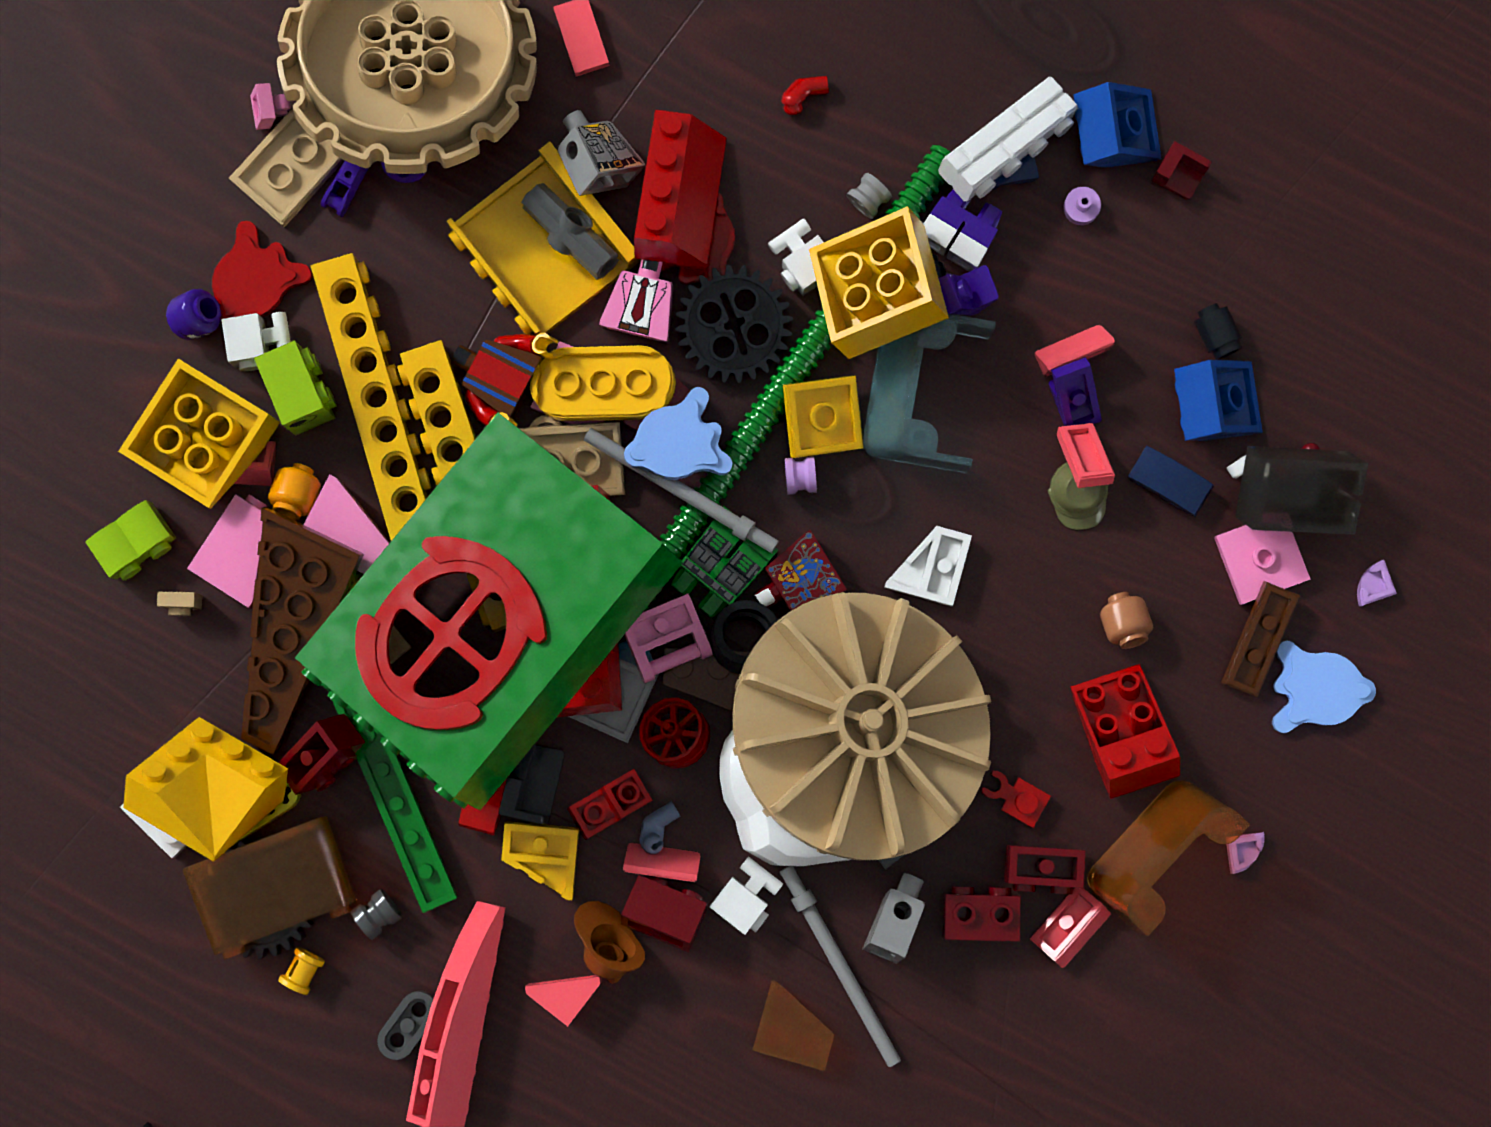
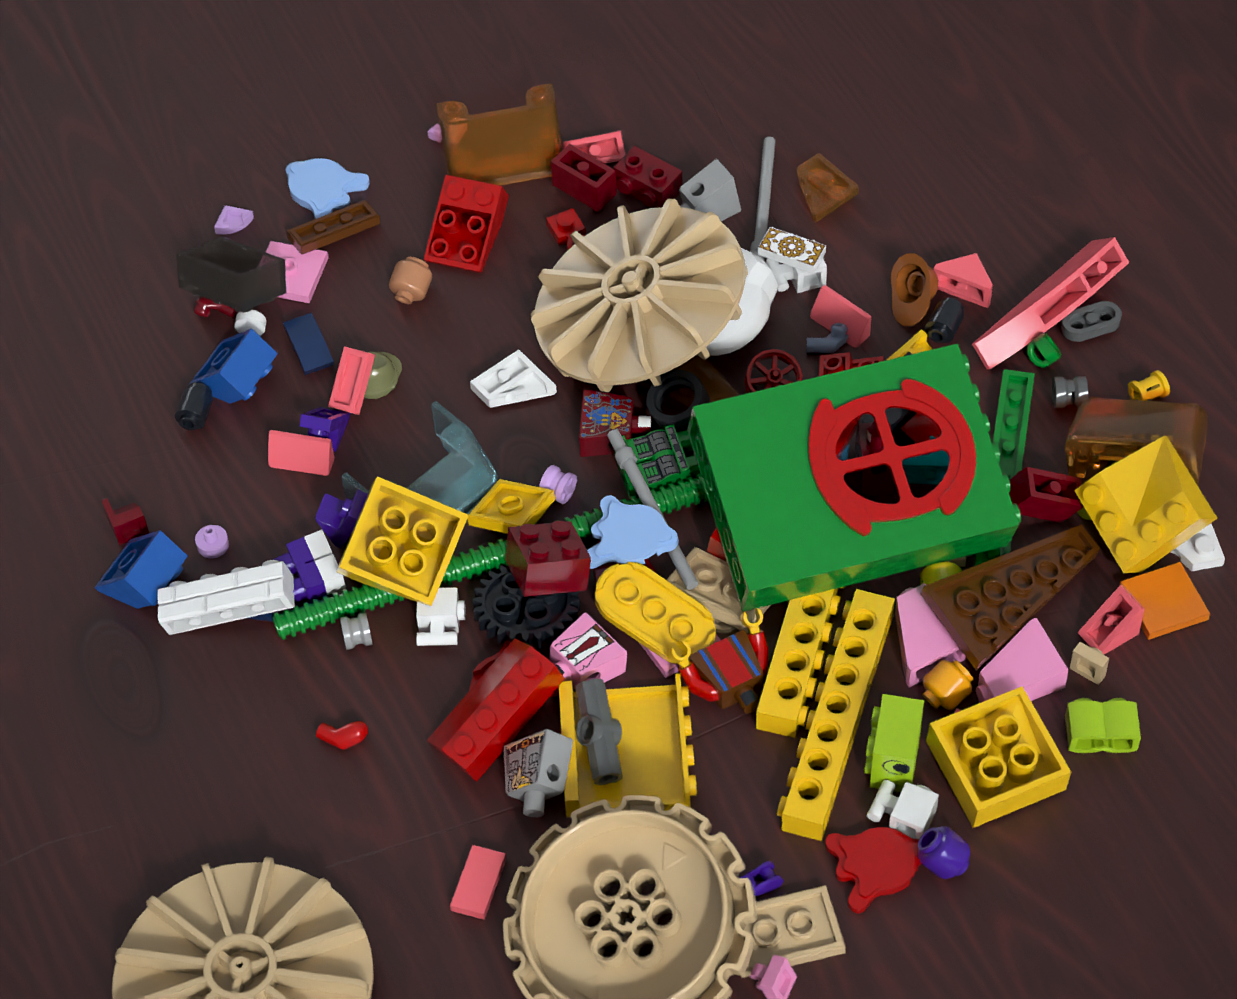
camera: 145 degrees left, 30 degrees down
(149, 718) = (1167, 600): none -> orange tile
(183, 657) = (1114, 621): none -> coral slope
(430, 954) = (1046, 347): none -> green tile
(553, 926) = (945, 320): none -> black brick
(664, 912) = (860, 282): dark red brick -> none
(737, 367) = (547, 558): none -> dark red brick
(755, 899) = (791, 250): none -> tile

